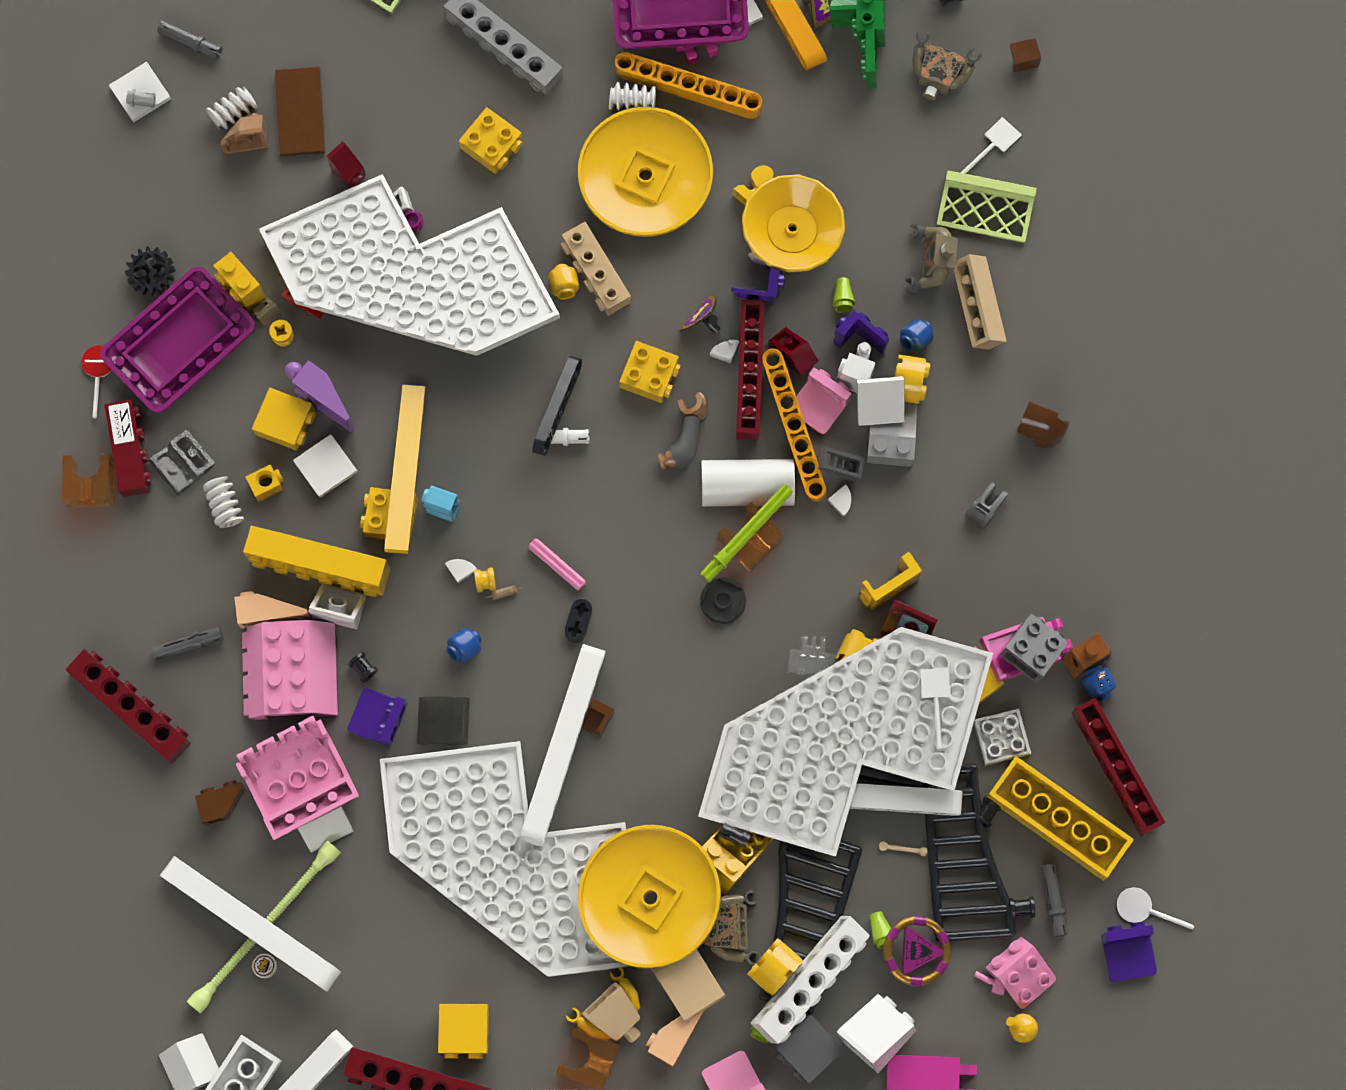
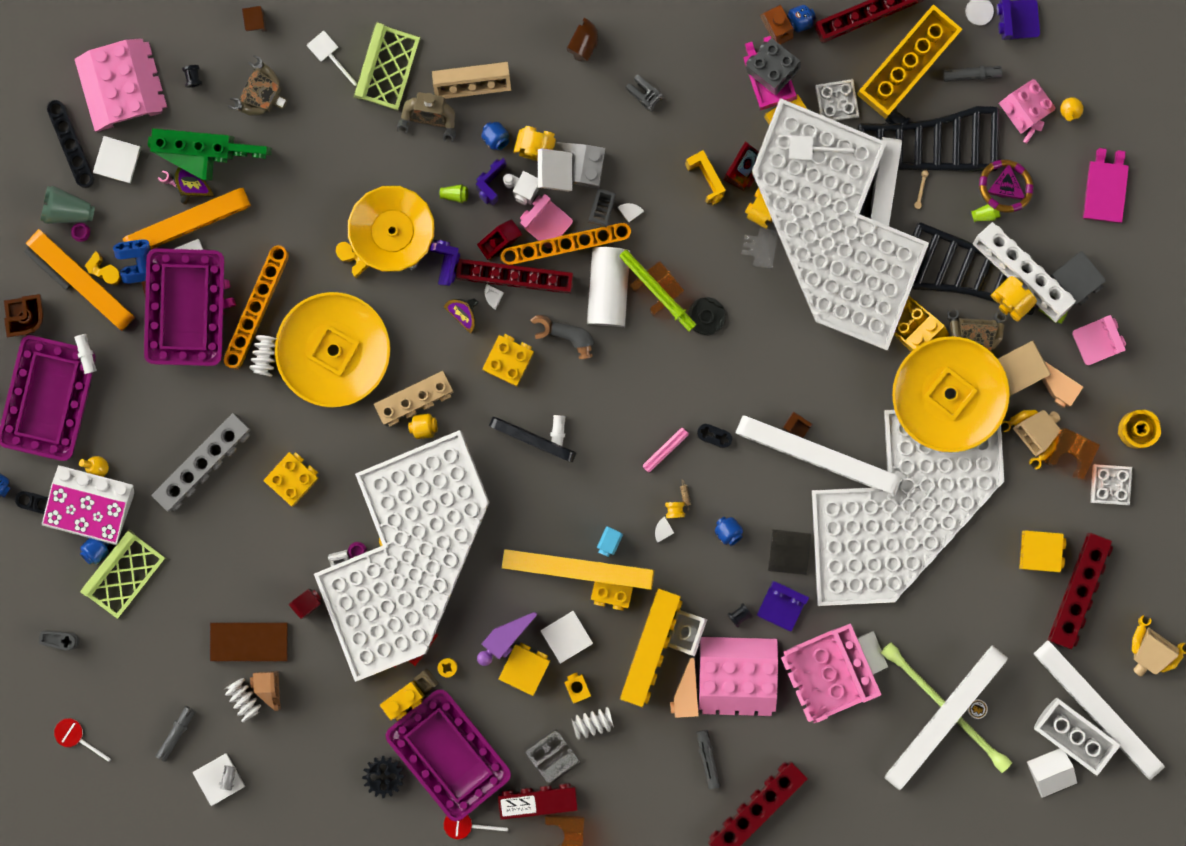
camera: 85 degrees left, 10 degrees up
(219, 803) = (845, 740): reddish brown slope -> none
(734, 835) = (906, 321): black pin -> none
(877, 1032) = (1068, 222): white slope -> none
(1022, 907) = (977, 98): black bush -> none

